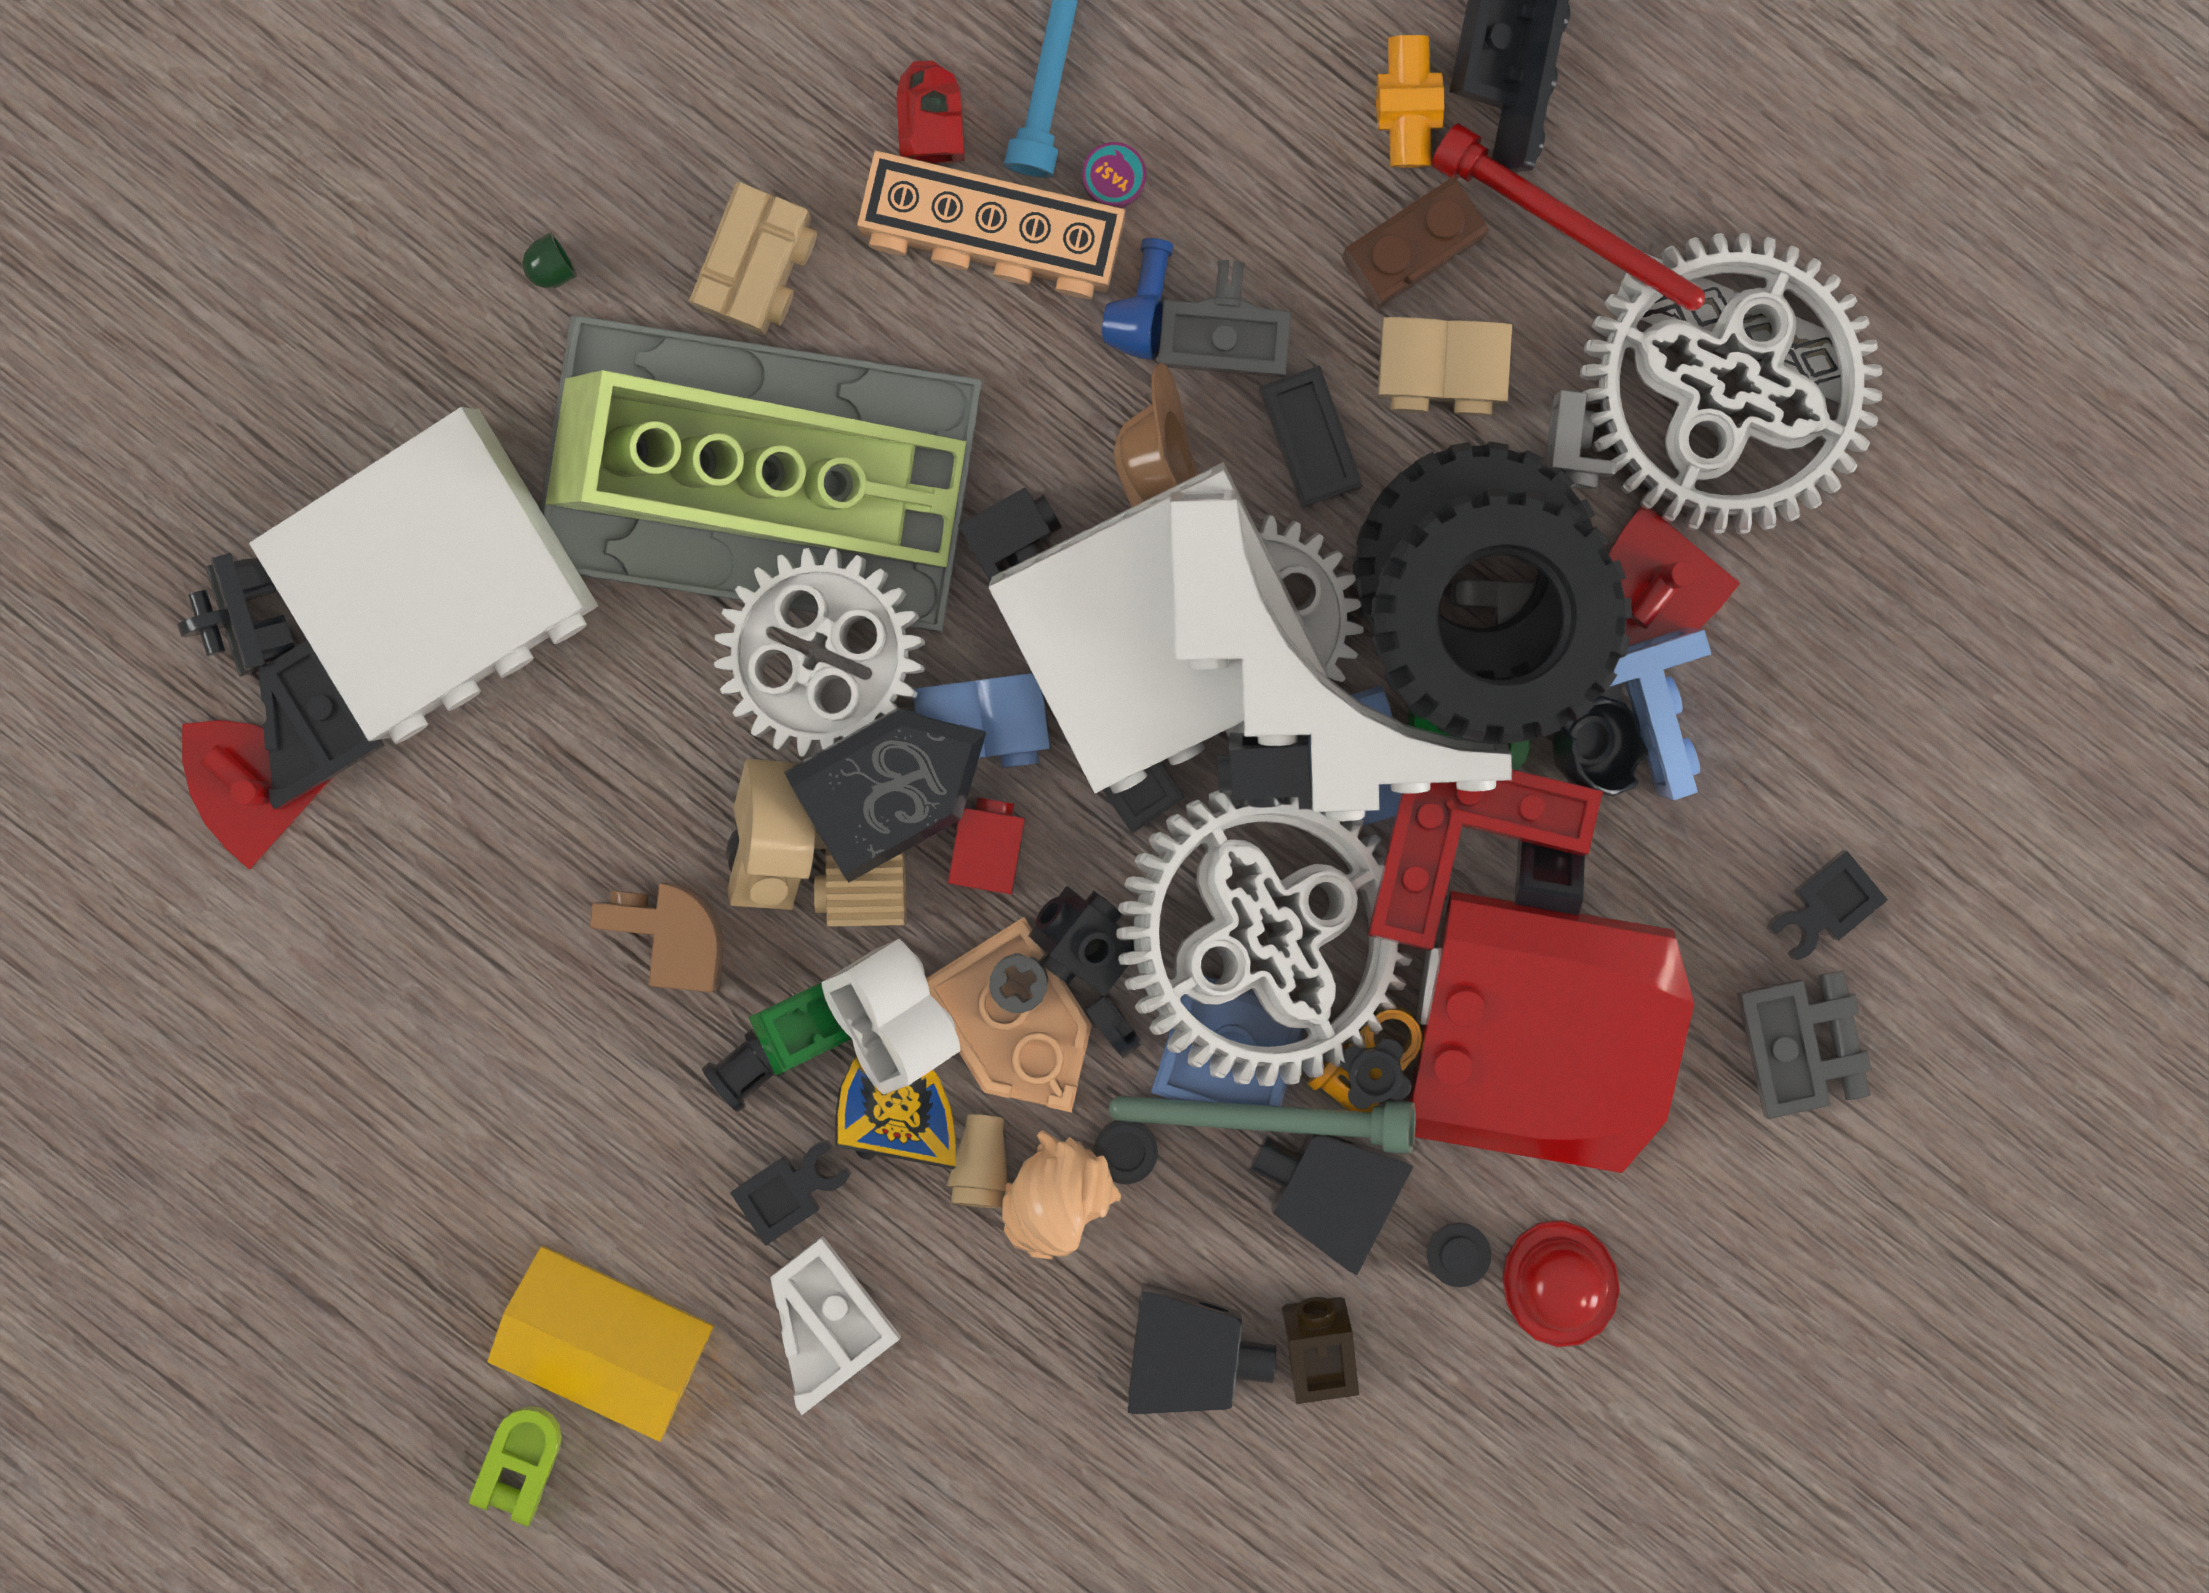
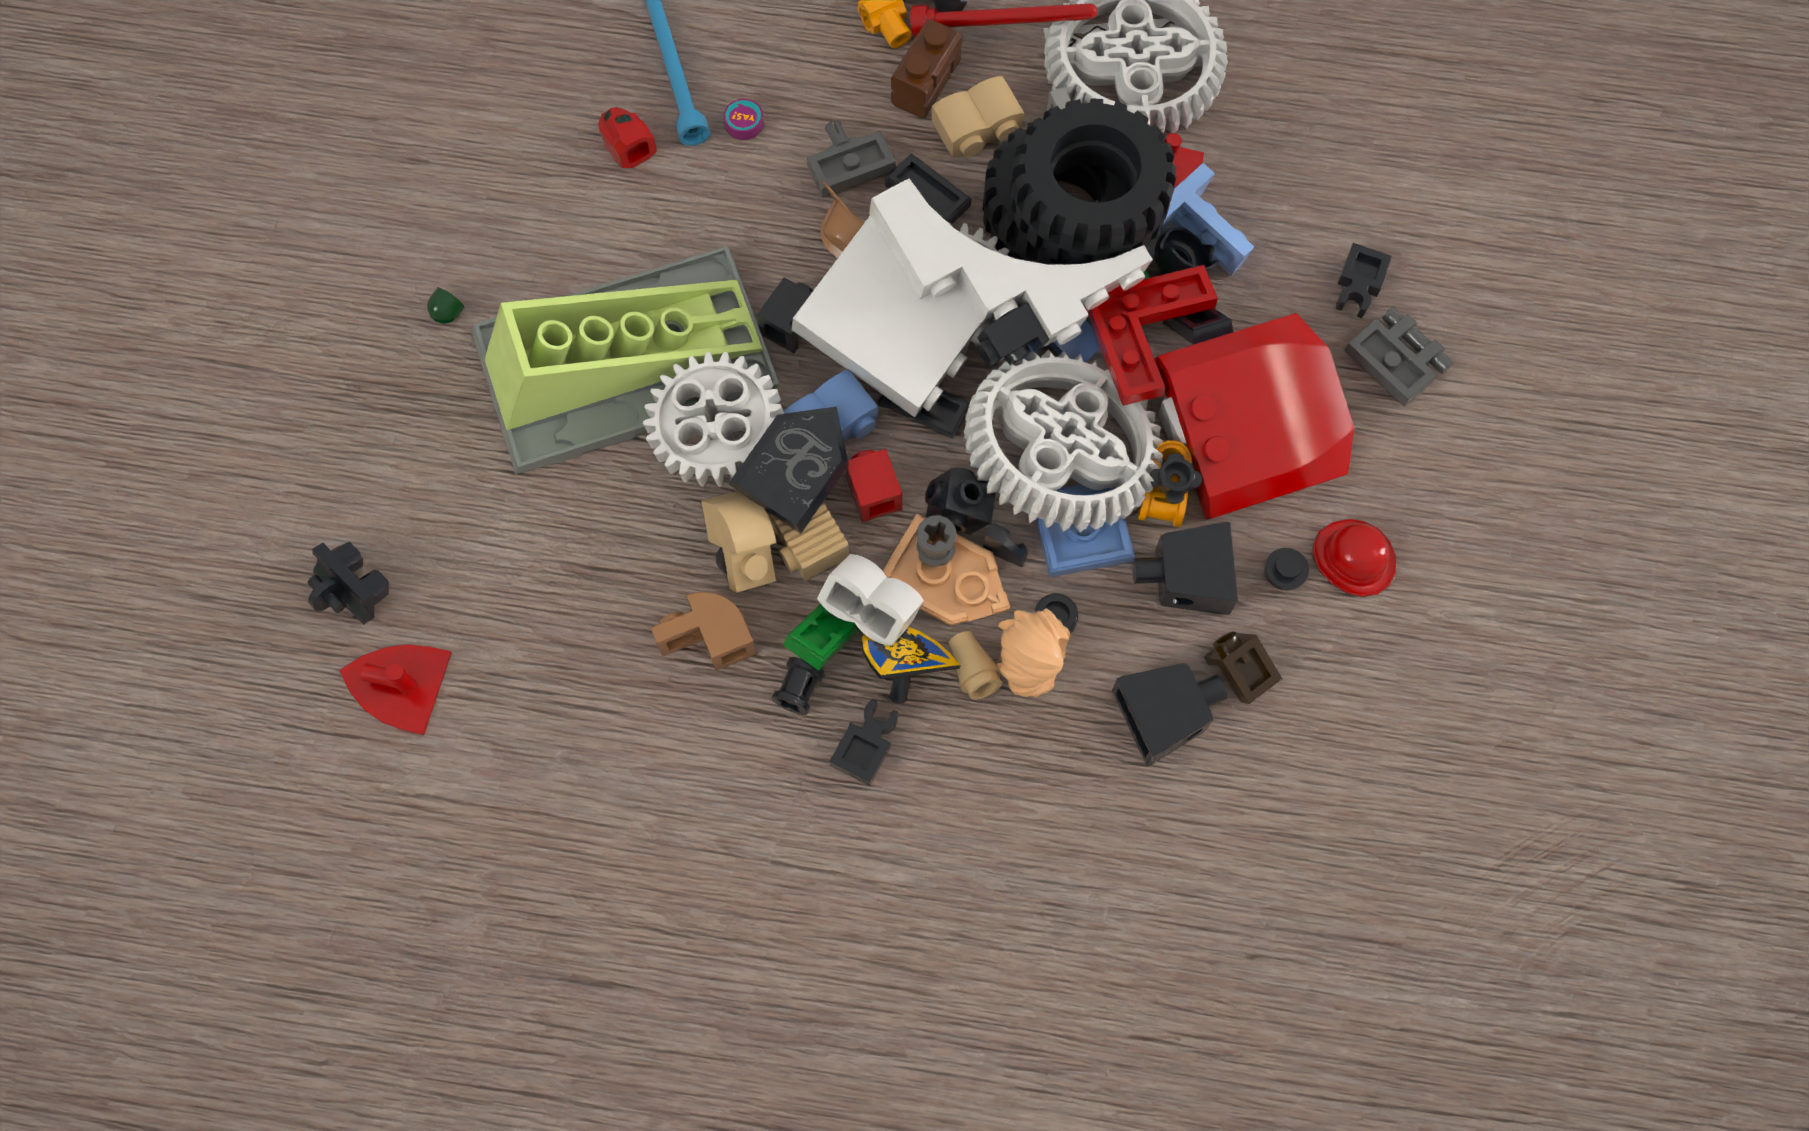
camera: 30 degrees left, 20 degrees down
(306, 726) = (421, 623): black wing -> none
(425, 576) = (452, 499): white brick -> none
(525, 1444) = (783, 996): lime plate -> none
(599, 1342) = (796, 908): yellow slope -> none
(753, 260) = (562, 247): tan brick -> none
(826, 1323) = (934, 812): white wing -> none
(990, 224) = (689, 167): light nougat brick -> none
(1136, 321) = (795, 177): blue bar -> none
(1386, 1126) = (1201, 503): sand green piece -> none

